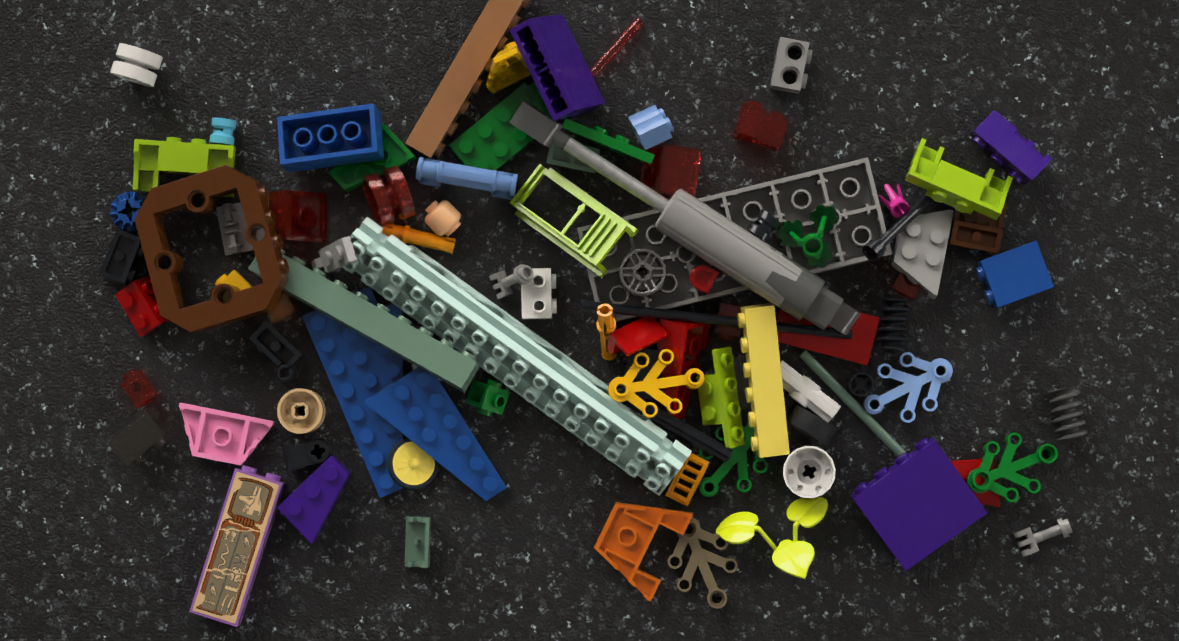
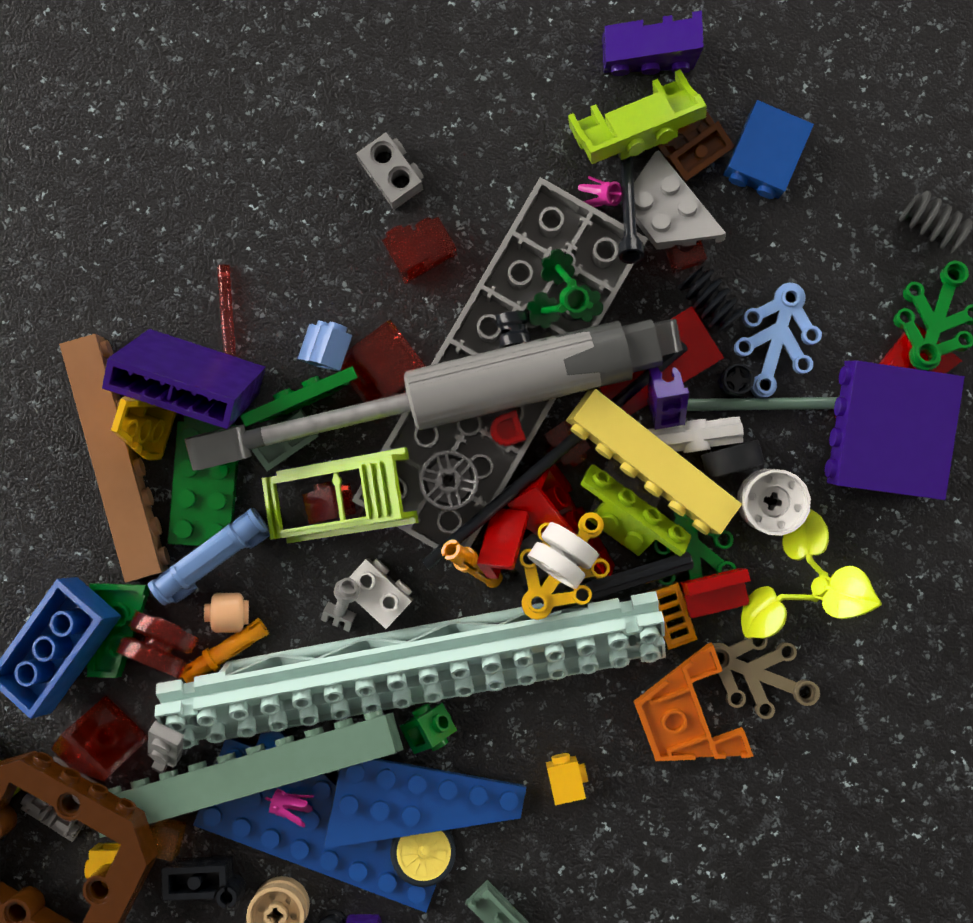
camera: 45 degrees left, 0 degrees up
(368, 359) = (282, 801): none -> dark pink piece
(534, 505) = (566, 778): none -> yellow brick
(559, 213) = (322, 502): none -> clear red brick
(662, 376) = (563, 555): none -> white wheel
(724, 489) = (716, 592): none -> red panel
(808, 354) = (667, 399): none -> dark purple hinge

